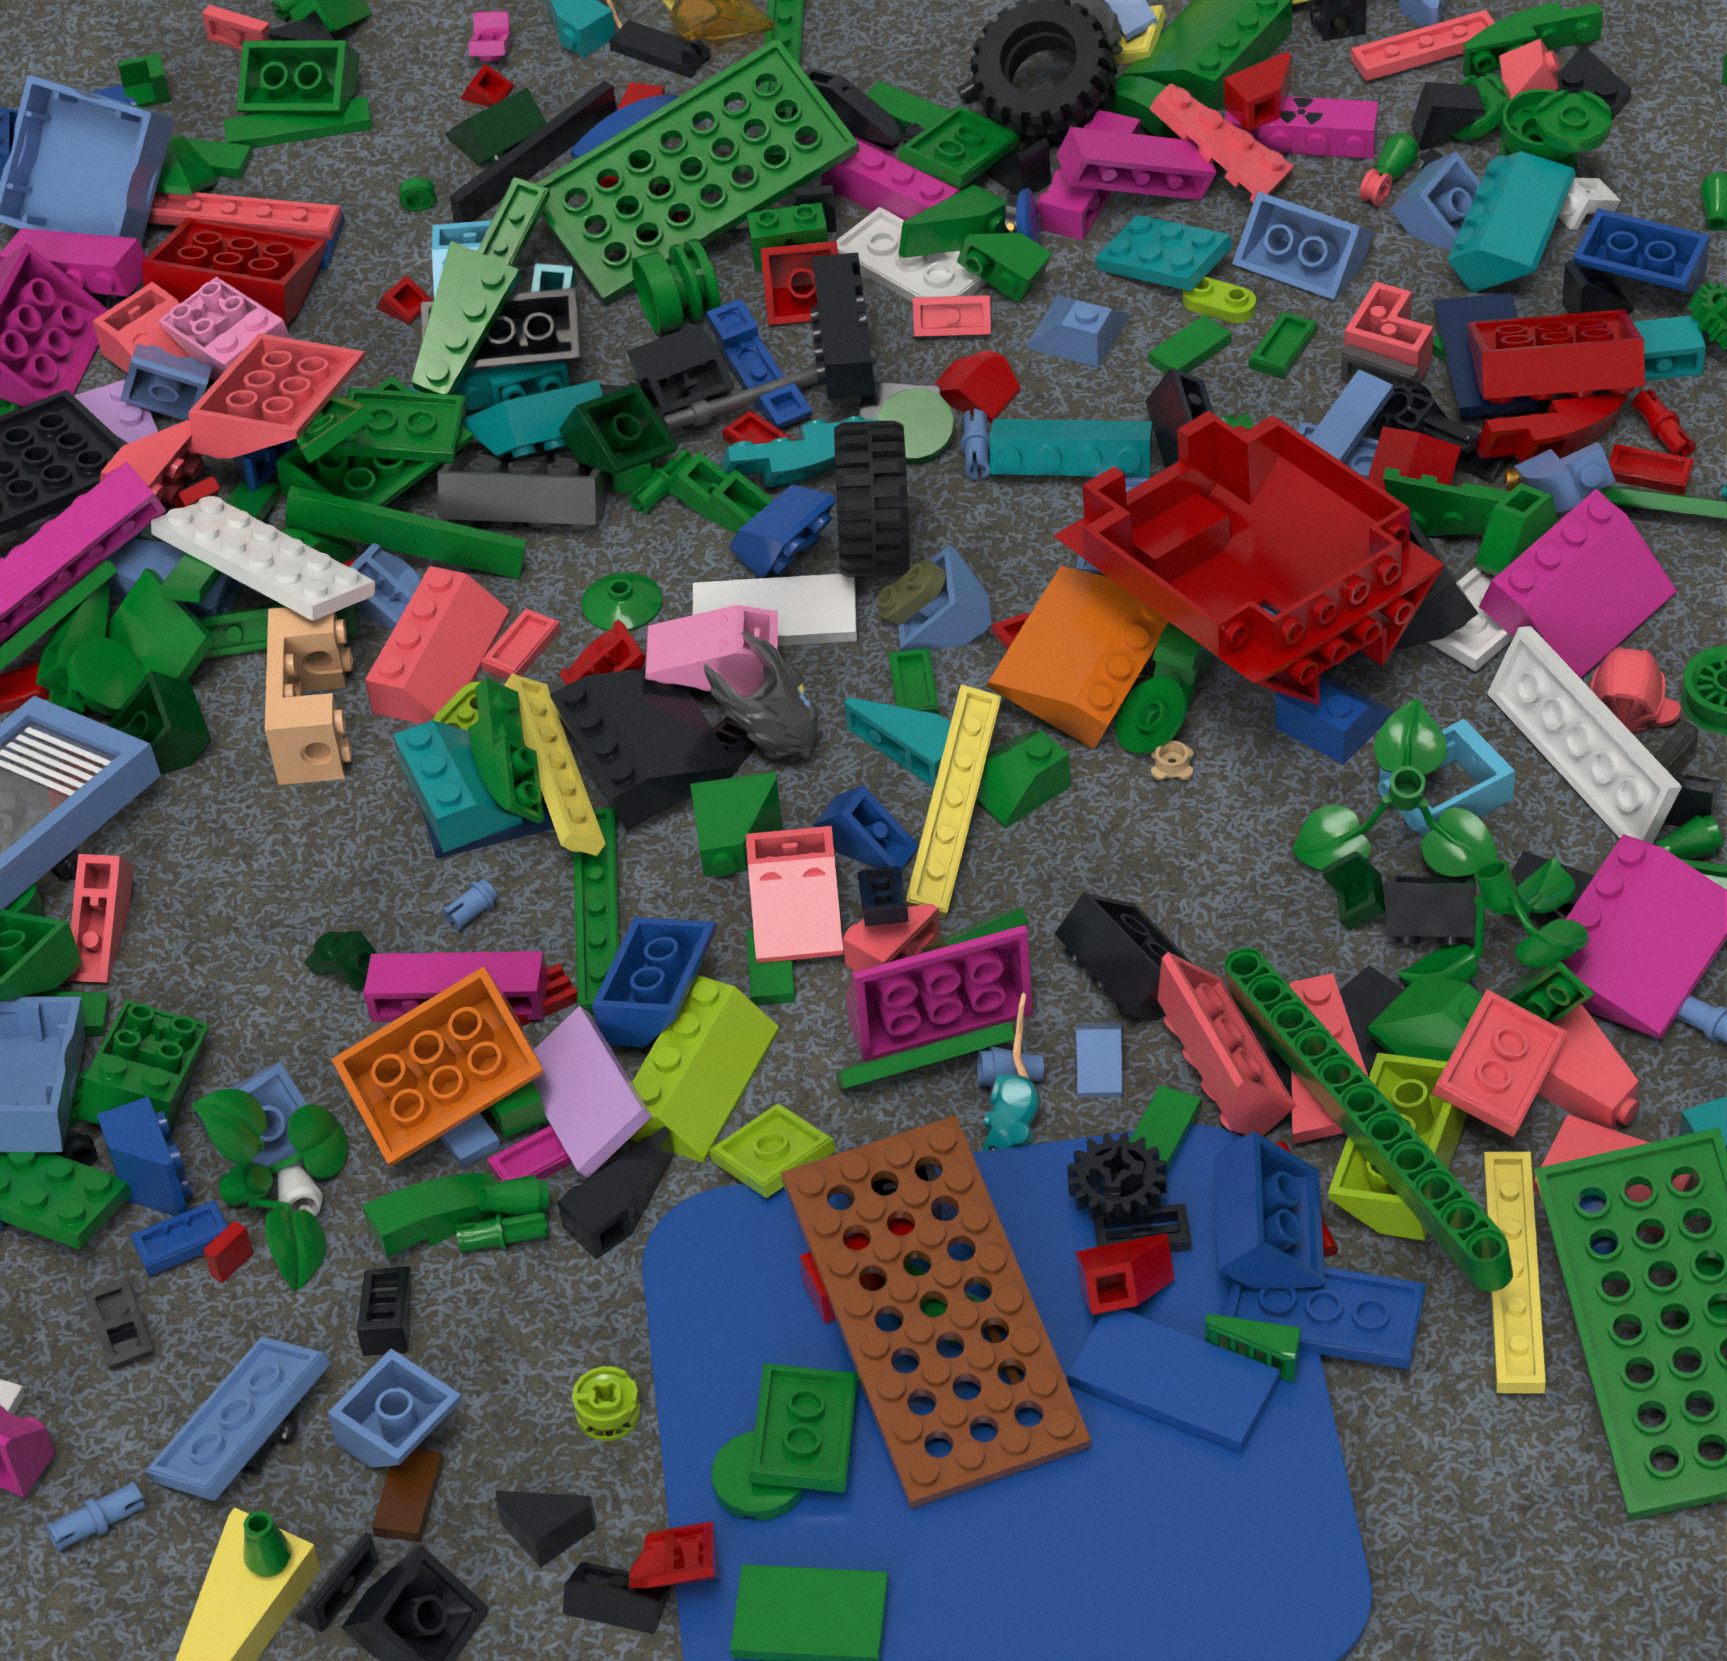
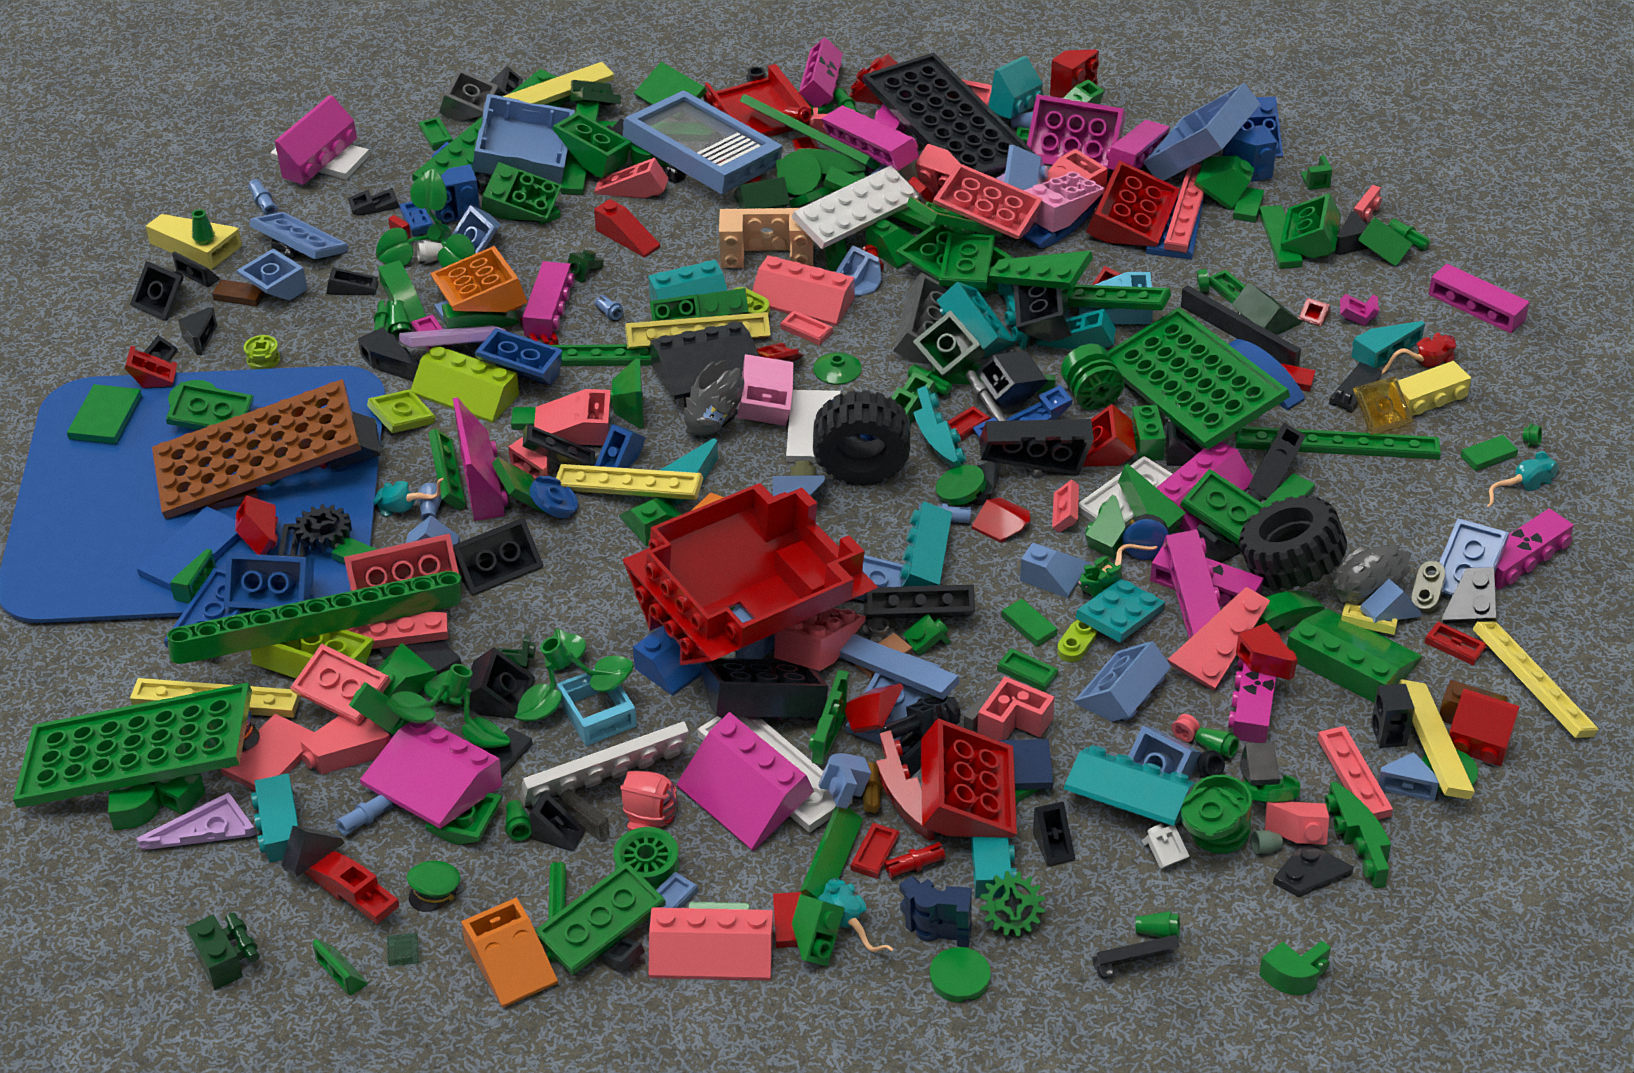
camera: 90 degrees right, 5 degrees down
(240, 911) = (622, 227): none -> red slope
(405, 532) = (885, 269): green tile -> none
(423, 167) = (1225, 289): none -> green tile
(914, 680) = (736, 480): green tile -> none
(992, 894) = (553, 497): none -> blue tile
(1094, 268) = (1105, 573): none -> green animal
(1514, 527) = (799, 746): green slope -> none
(1644, 251) = (1079, 858): blue slope -> none

